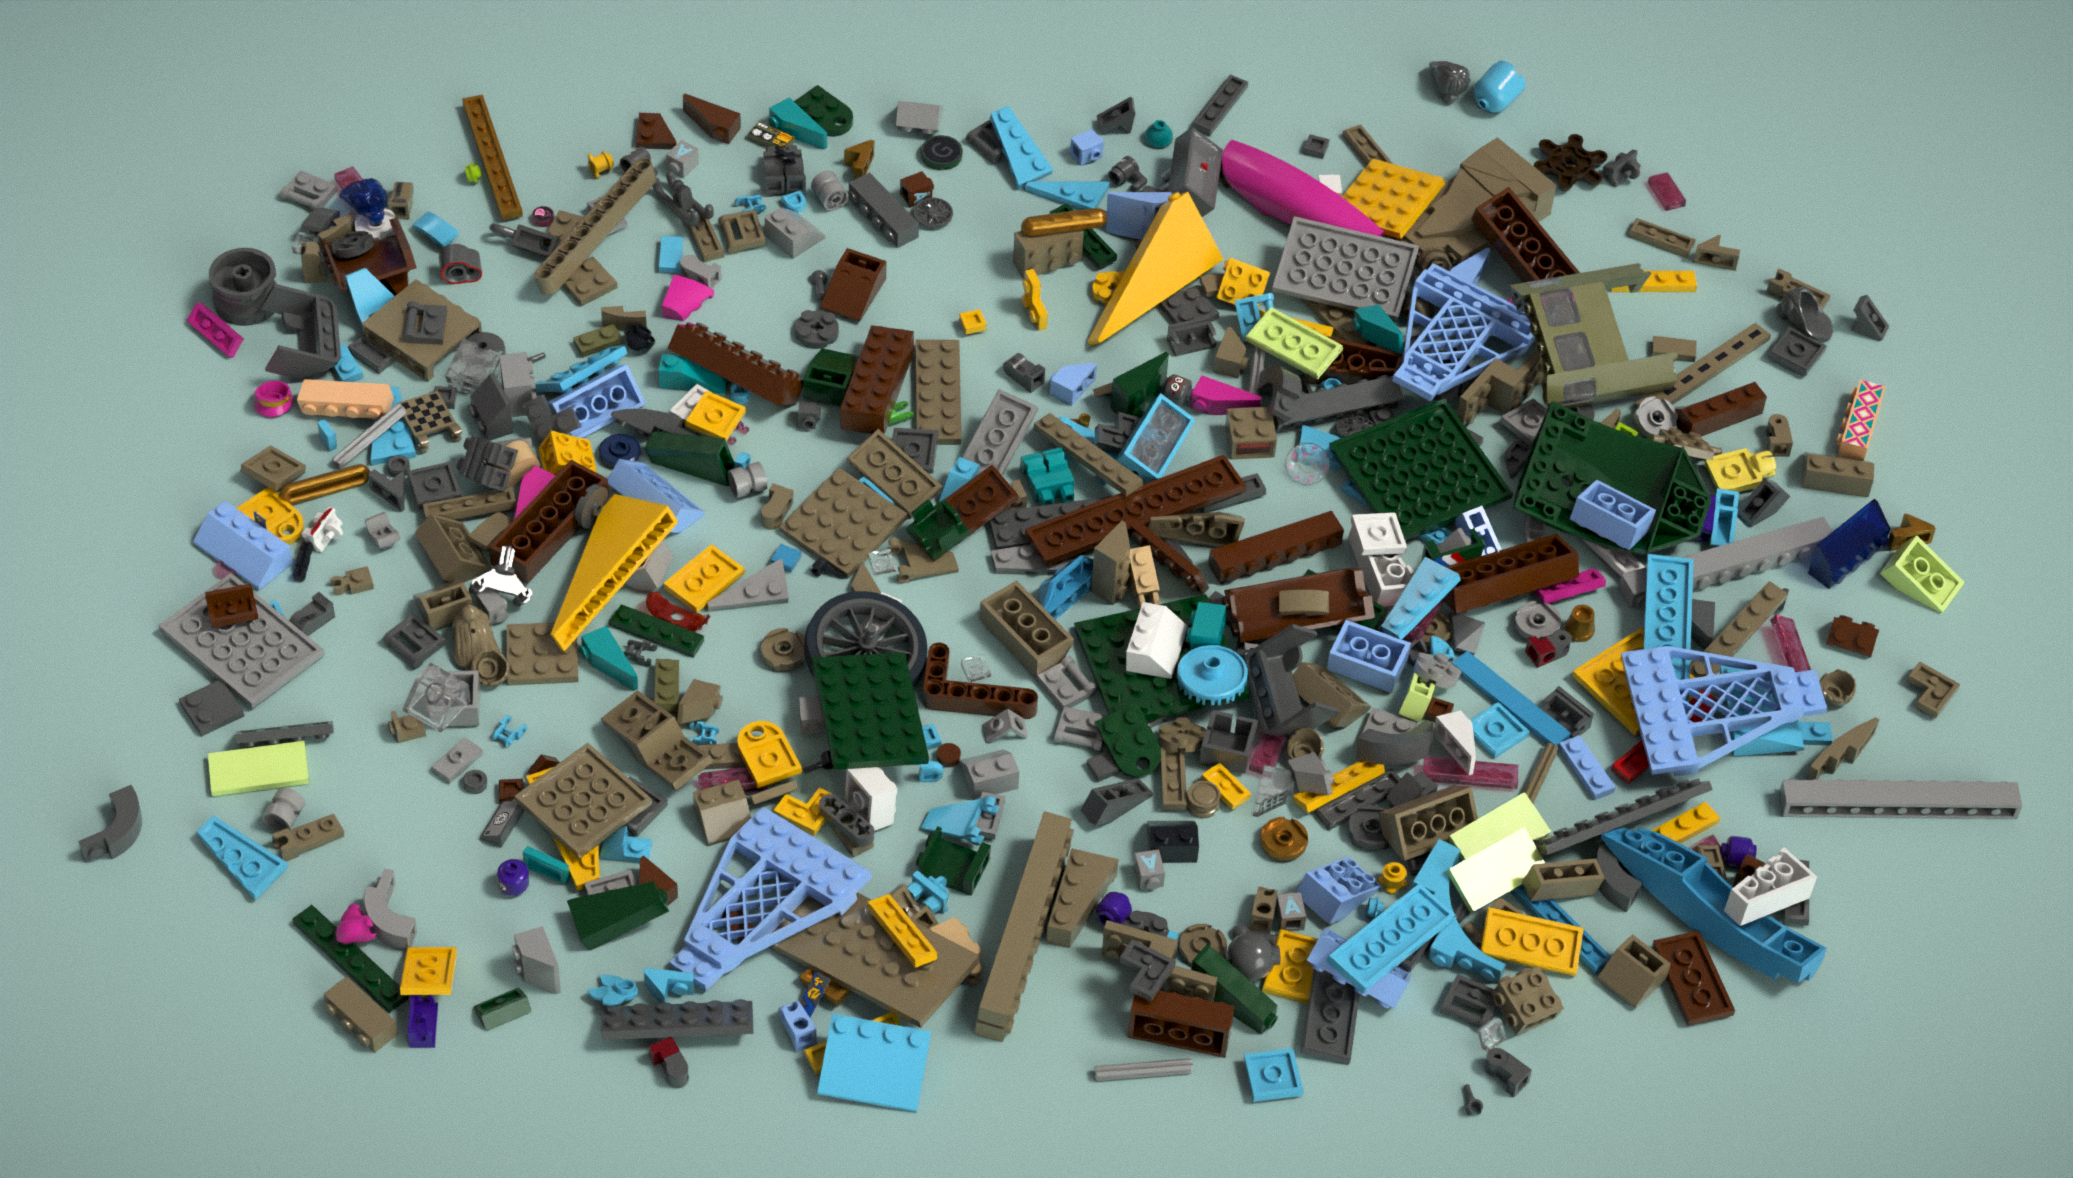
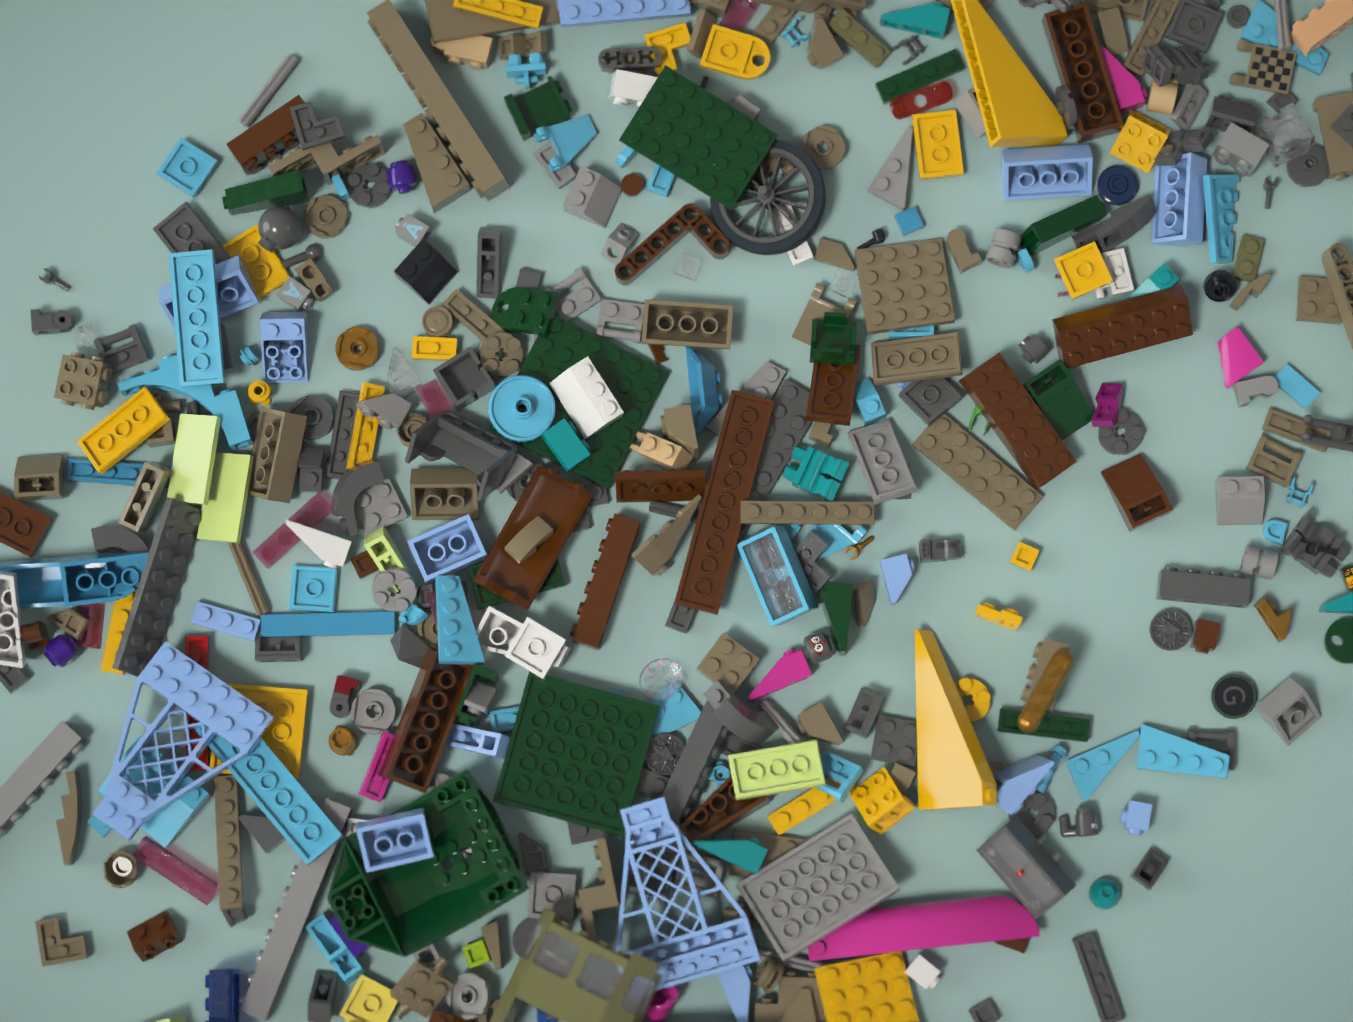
camera: 140 degrees right, 30 degrees up
(804, 343) = (1108, 405): none -> magenta slope
(819, 279) = (1174, 480): dark grey bar -> none

